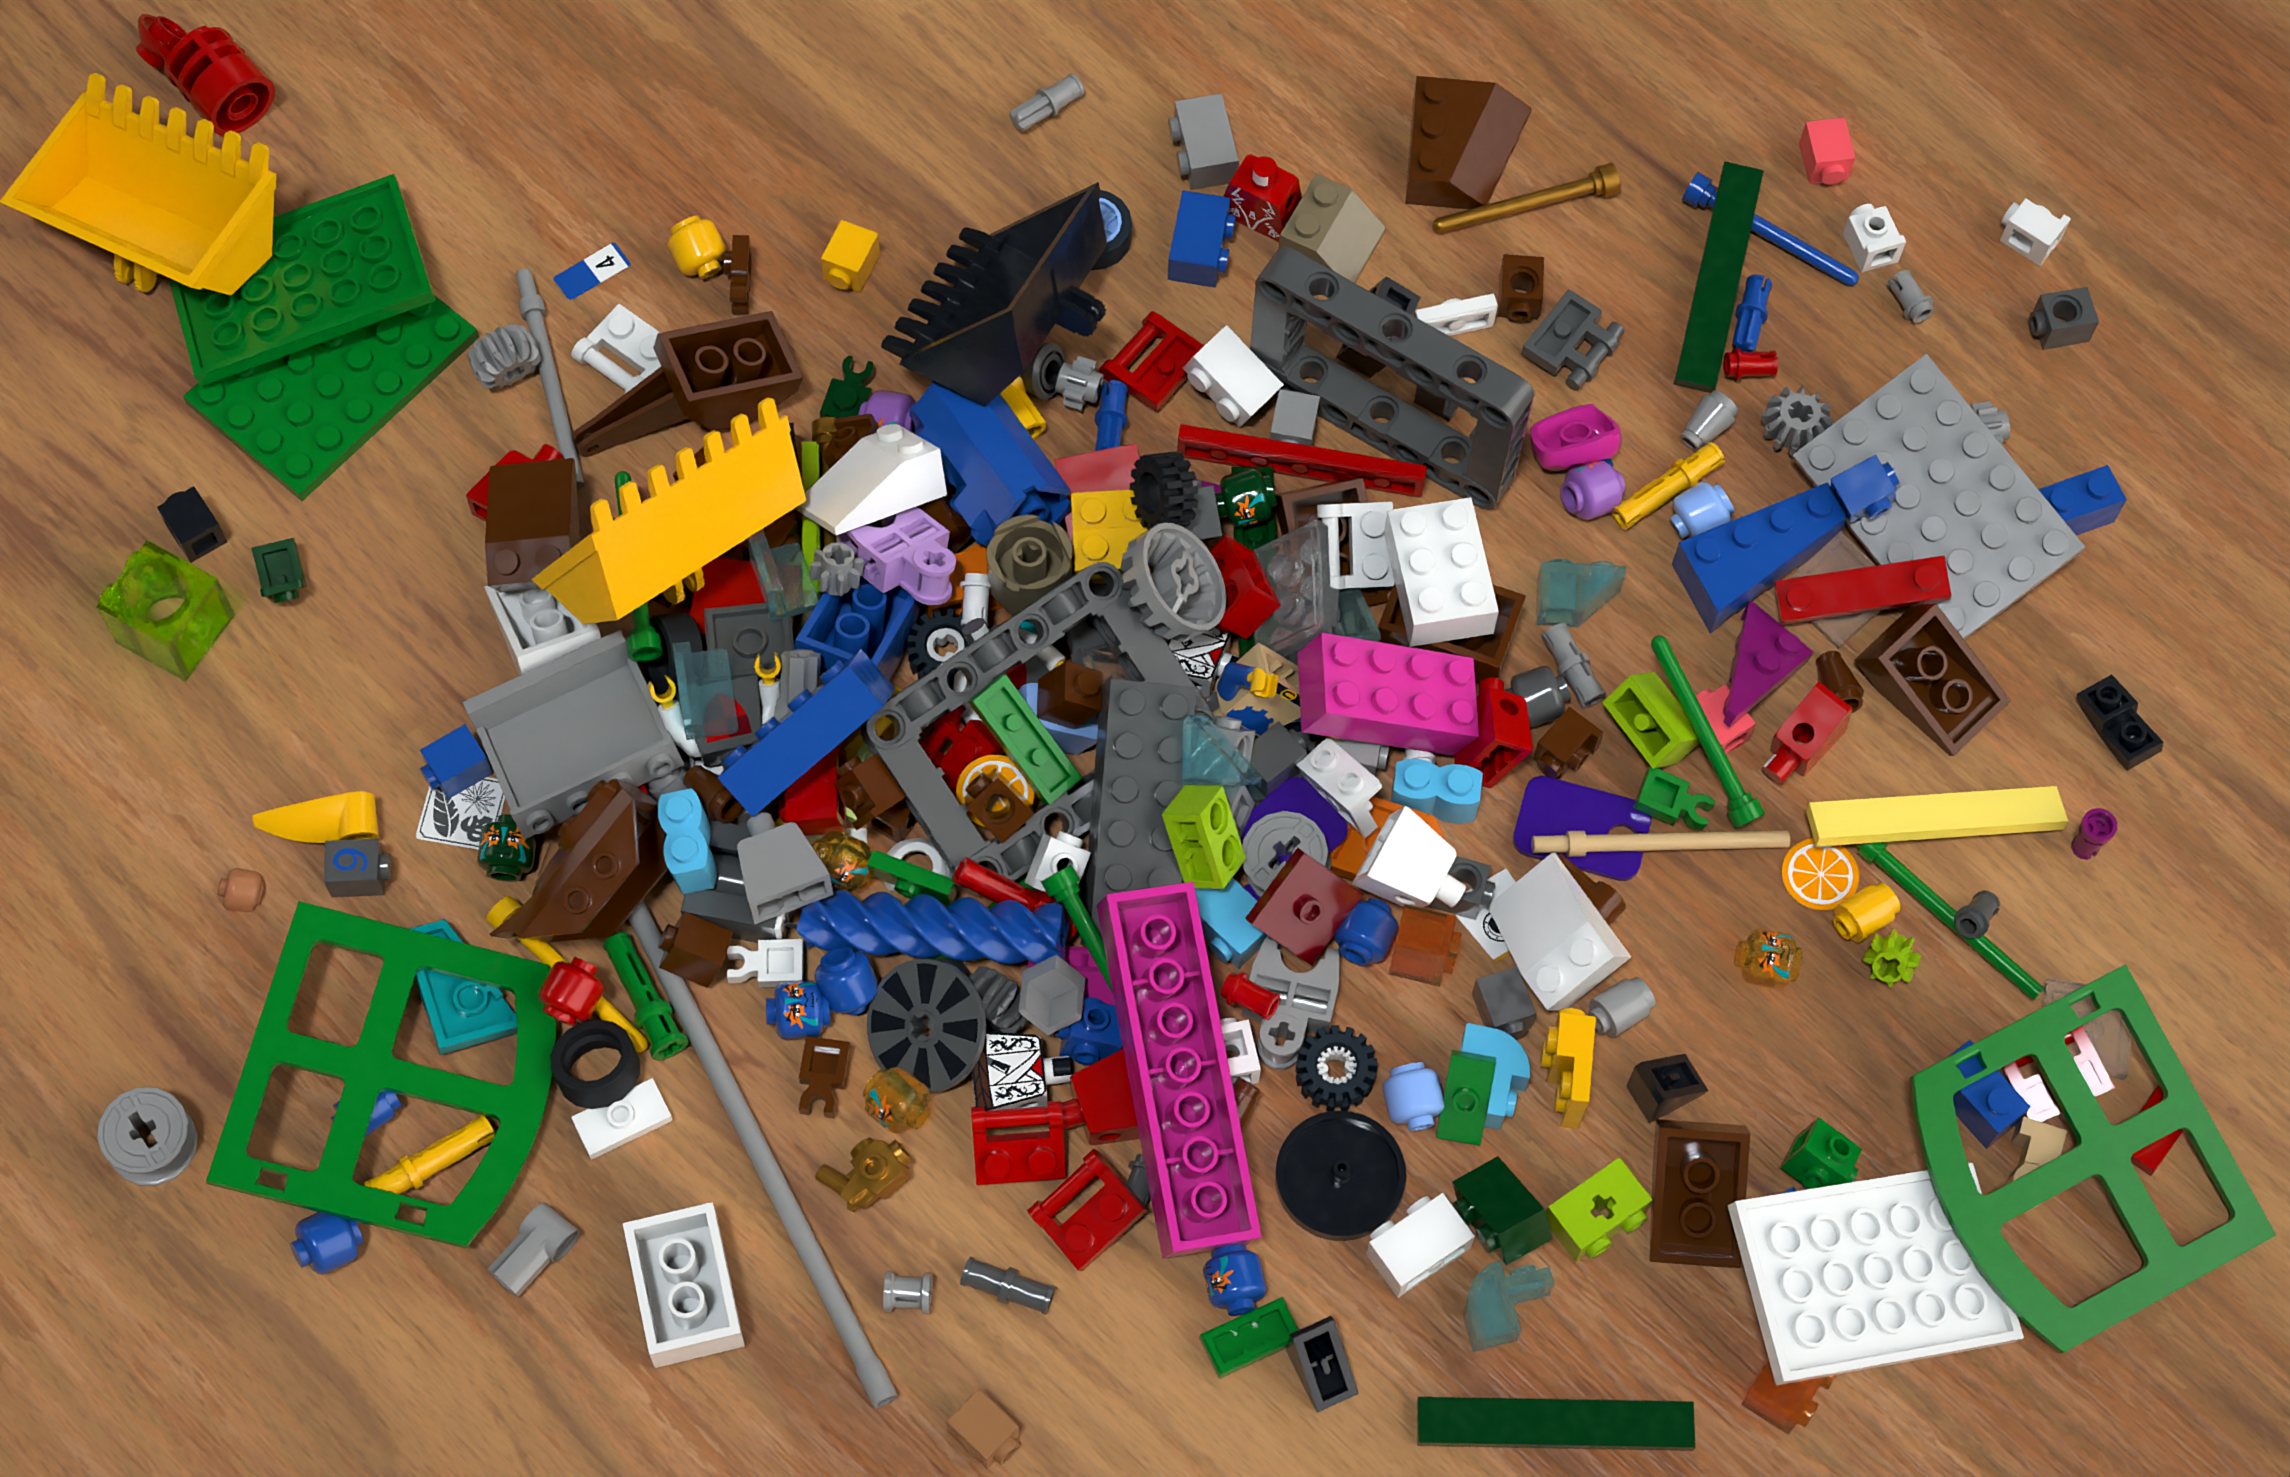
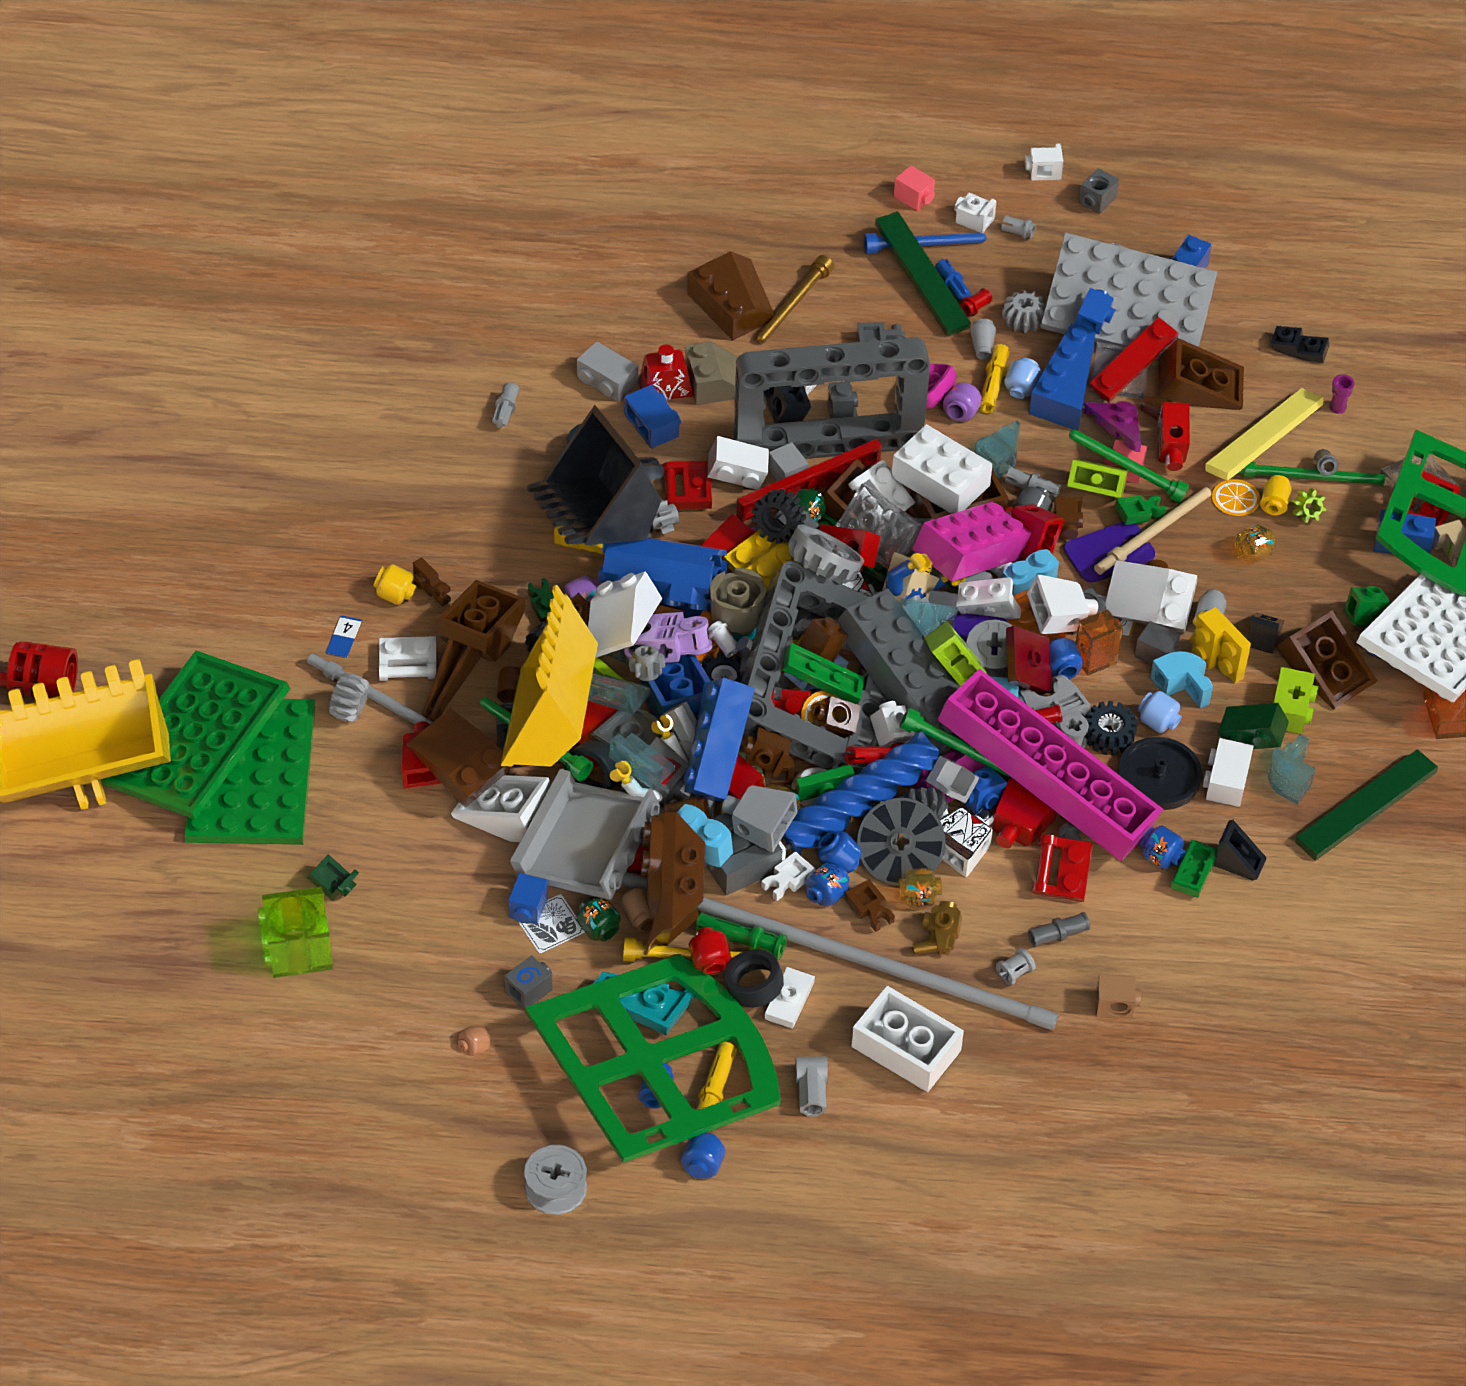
camera: 40 degrees left, 15 degrees down
(191, 524) = (254, 884): black brick -> none
(323, 819) = (484, 974): yellow piece -> none
(694, 949) = (749, 891): reddish brown brick -> none
(850, 256) = (480, 537): yellow brick -> none
(1018, 1155) = (1005, 868): red plate -> none
(1111, 415) = (694, 522): blue axle -> none
(1466, 1097) = (1184, 689): green plate -> none
(1522, 273) = (831, 331): reddish brown brick -> none

